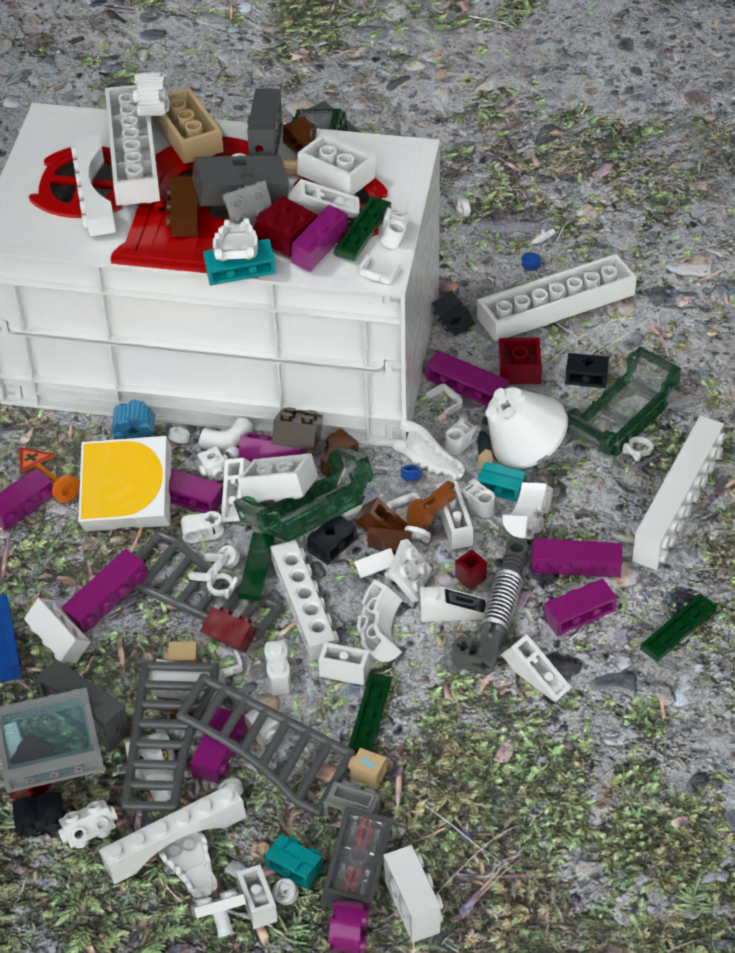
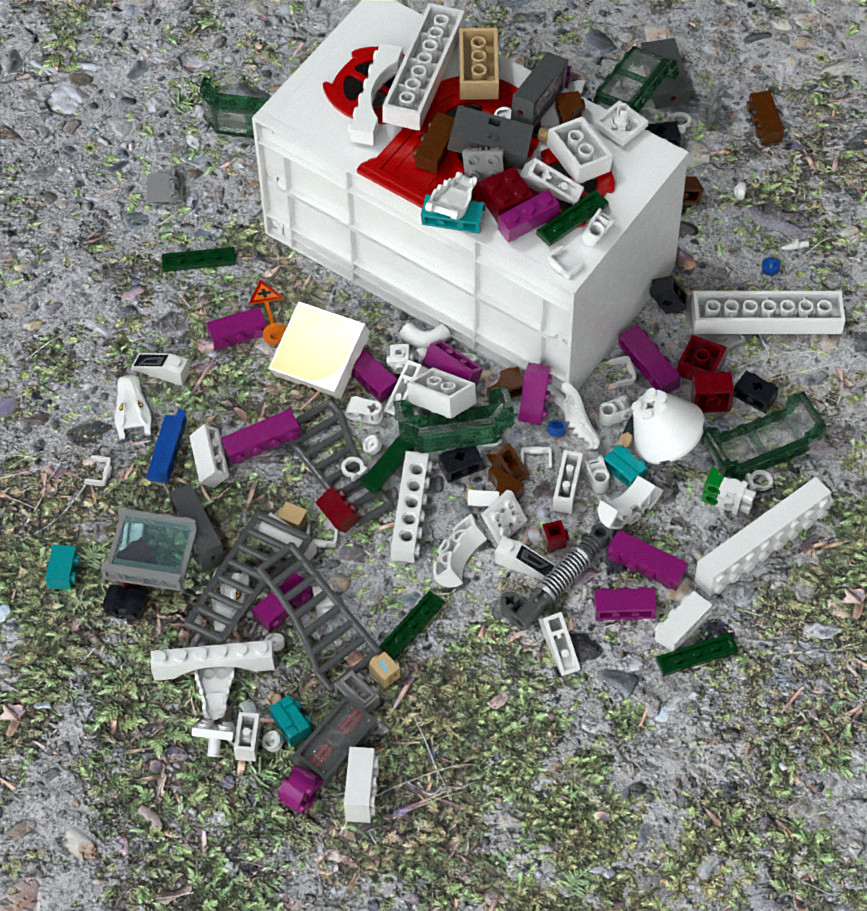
camera: 25 degrees right, 10 degrees up
(87, 823) = (155, 625): white brick -> none
(133, 421) = (354, 296): dark azure brick -> none
(151, 94) = (455, 29): white brick -> none
(179, 435) = (389, 319): white tile -> none
(216, 567) = (354, 452): white piece -> none
(277, 667) = (359, 557): white brick -> none
(297, 428) = (477, 355): dark brown brick -> none
(344, 663) = (411, 575): white brick -> none
(361, 131) = (620, 118): none -> white plate
(376, 441) = (535, 393): none -> magenta brick
(422, 517) = (541, 473): dark orange piece -> none
(424, 537) = (529, 484): white piece -> none
(453, 143) = (765, 117): none -> reddish brown brick
(550, 378) = (712, 391): none -> dark red brick
(619, 466) = (727, 493): none -> white hips
(647, 600) = (683, 621): none -> white brick

